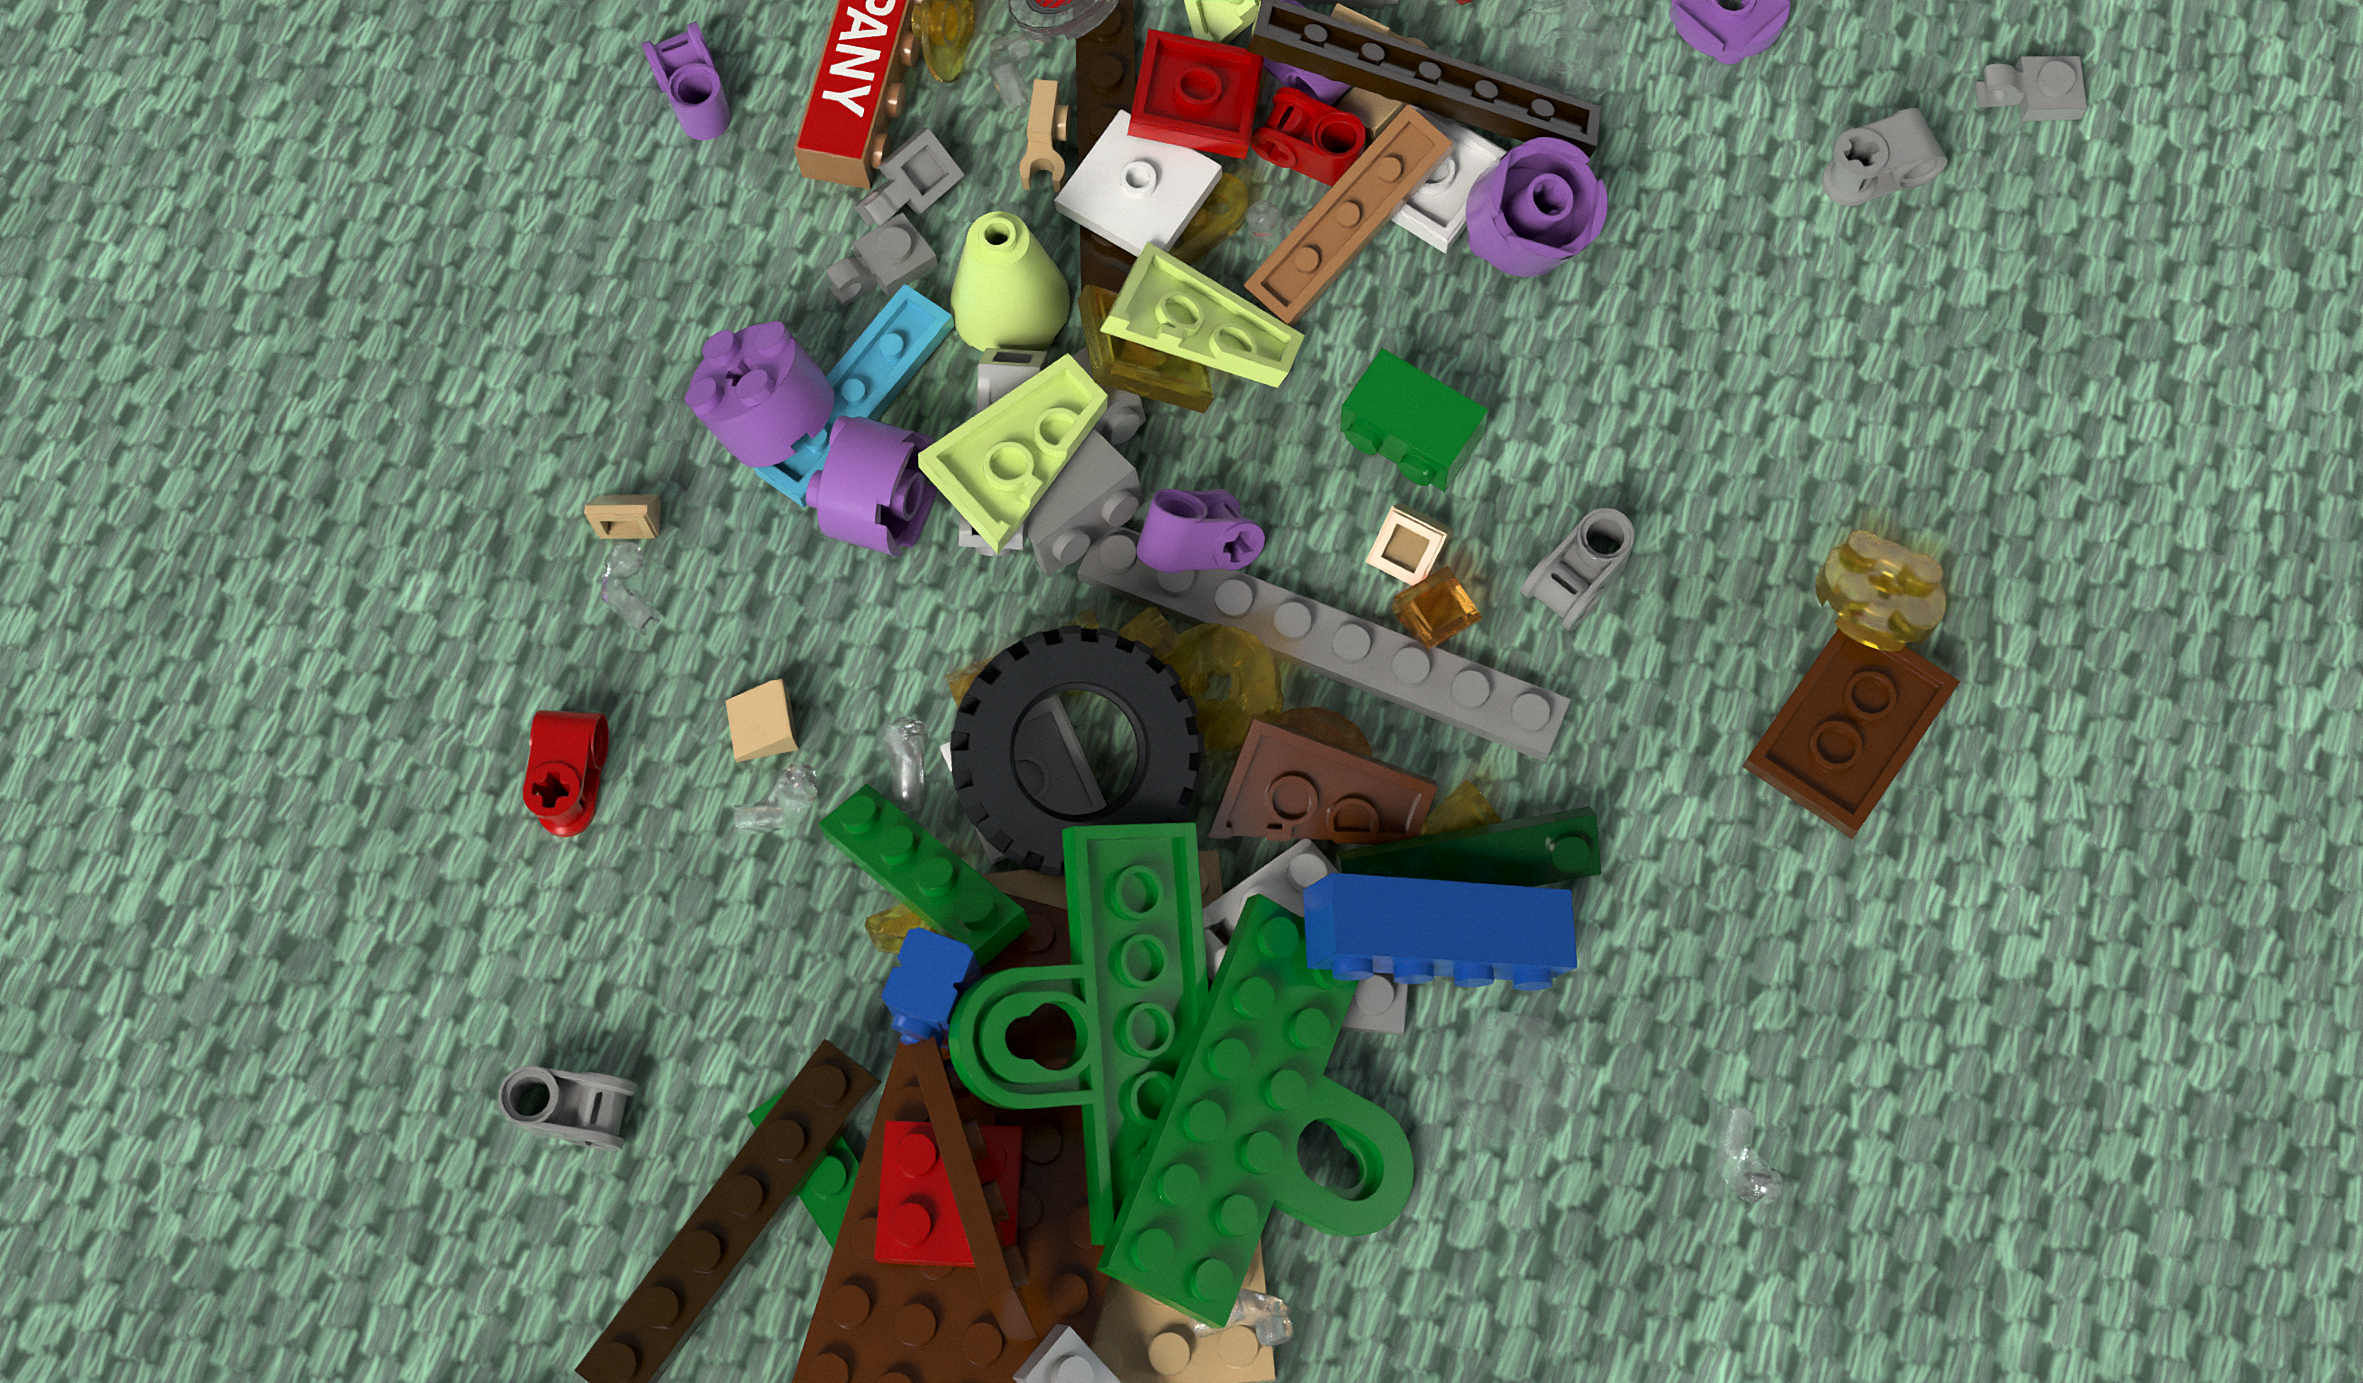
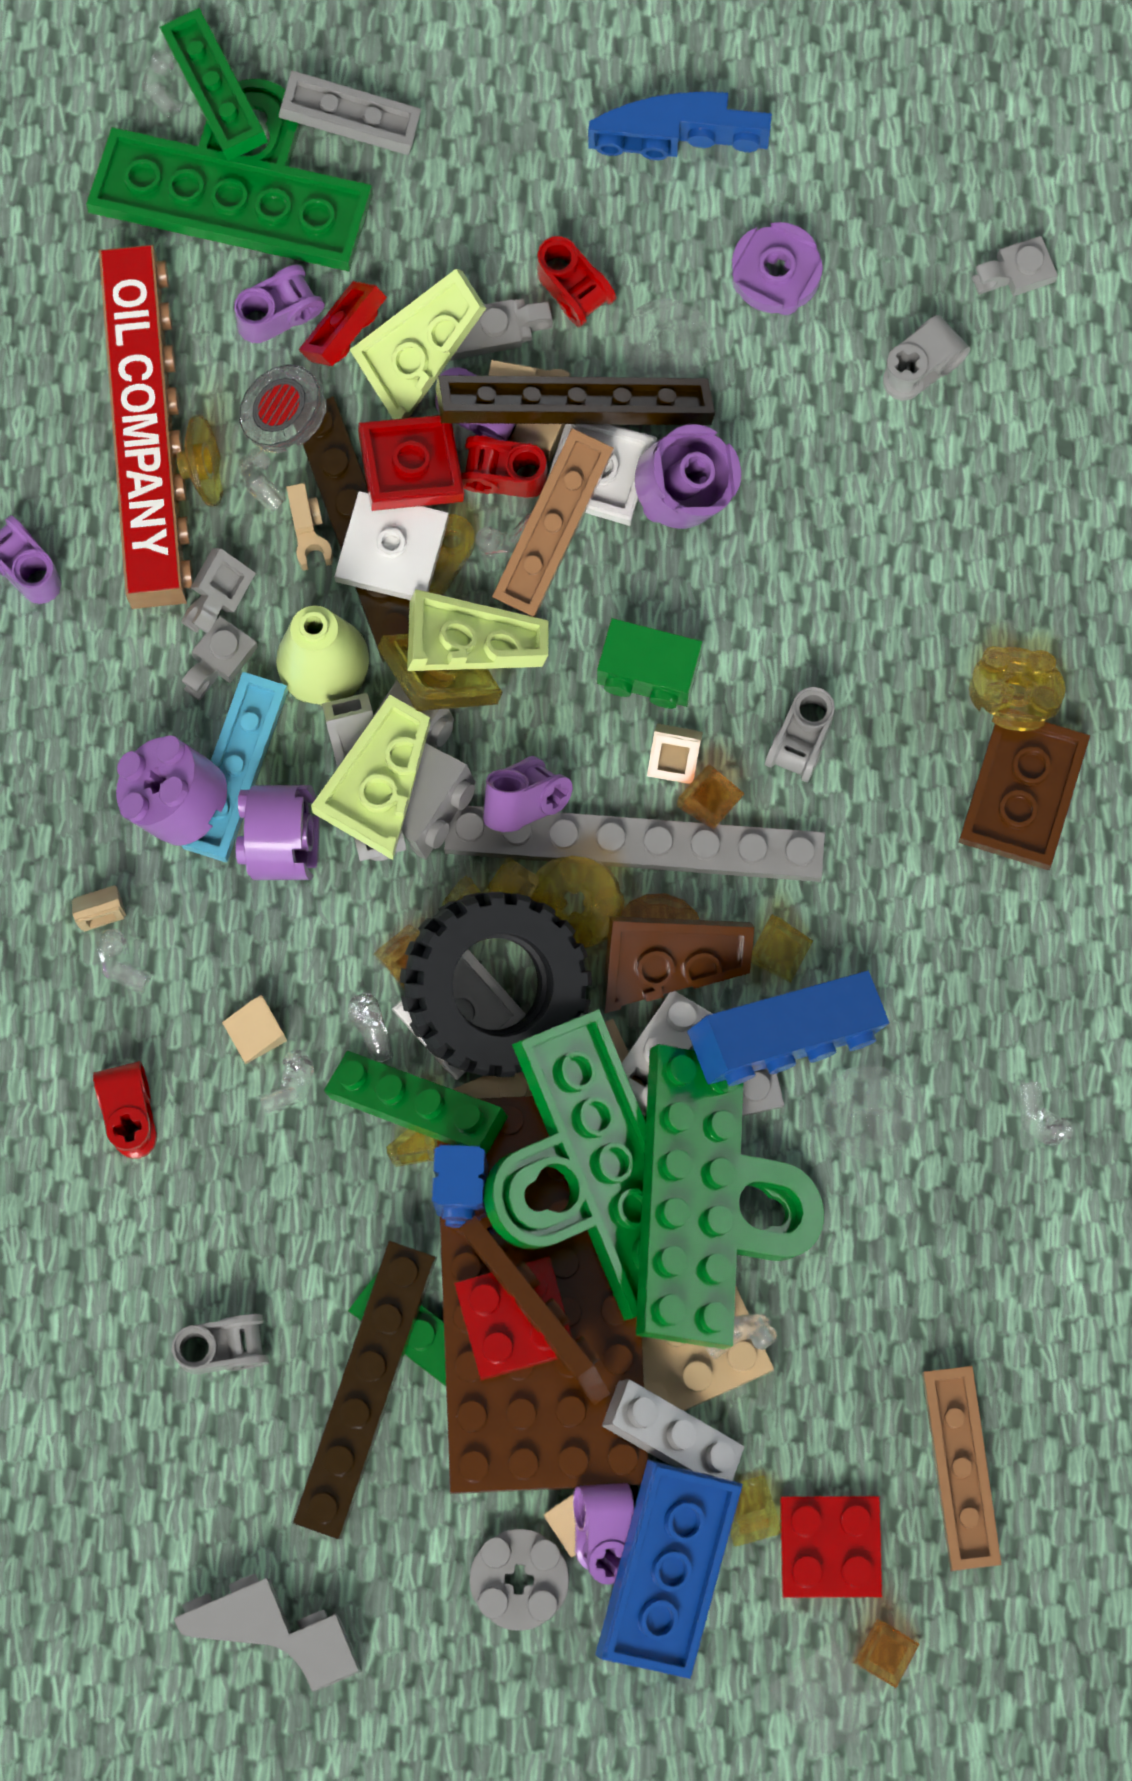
camera: 20 degrees left, 5 degrees up
(1502, 853) = (801, 964): dark green plate -> none

